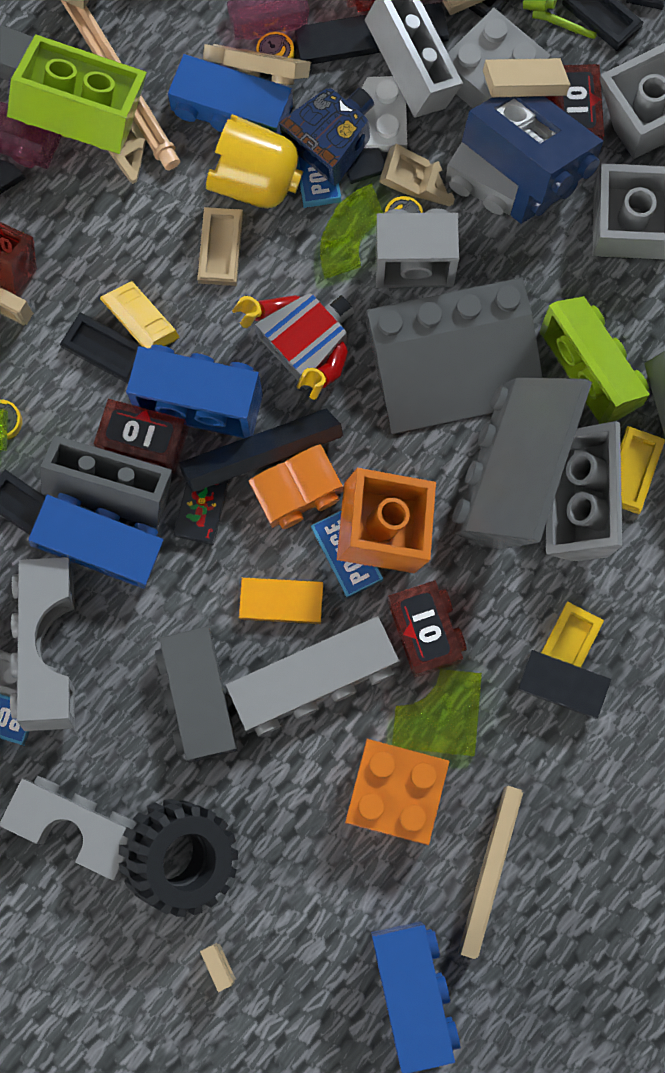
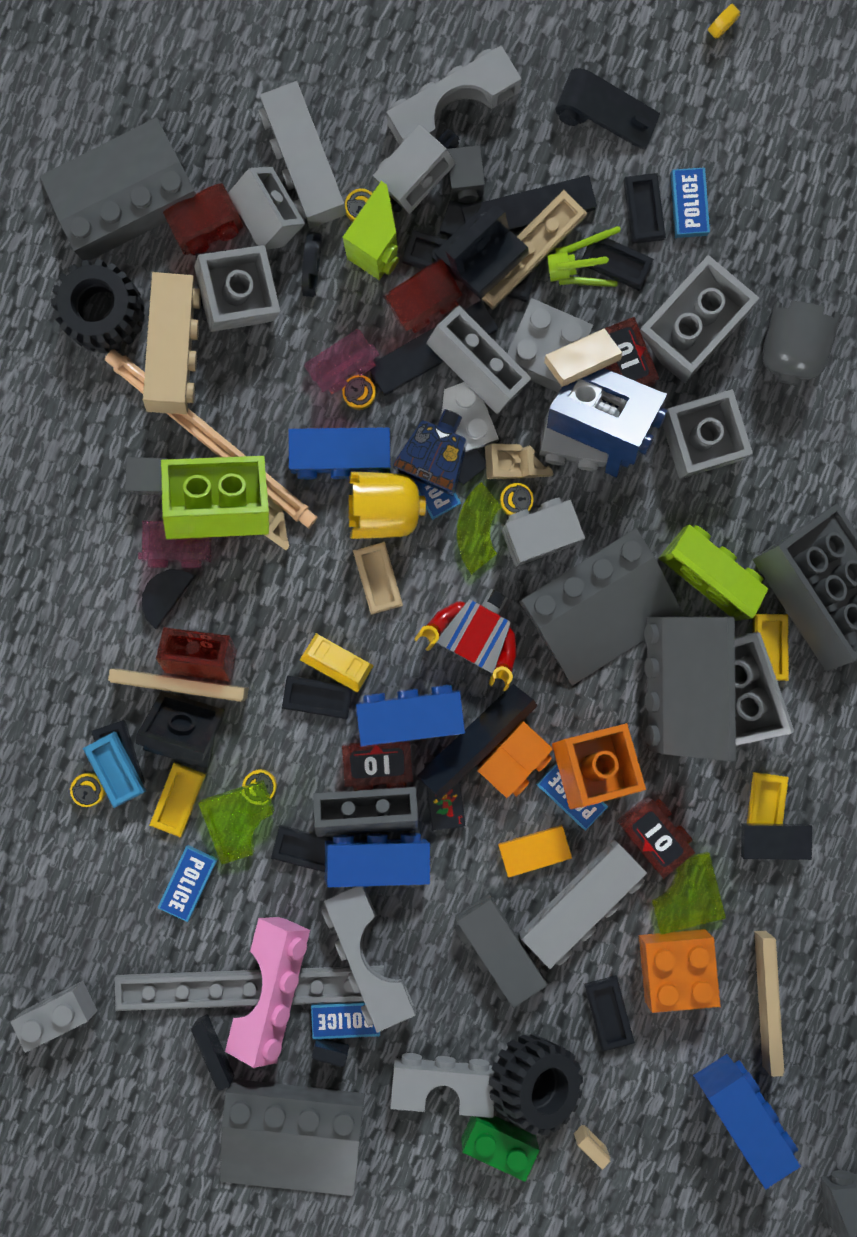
camera: 25 degrees left, 10 degrees up
(109, 920) = (500, 1145): none -> green brick
(283, 69) = (348, 413): tan plate -> none
(297, 819) = (609, 1013): none -> black tile

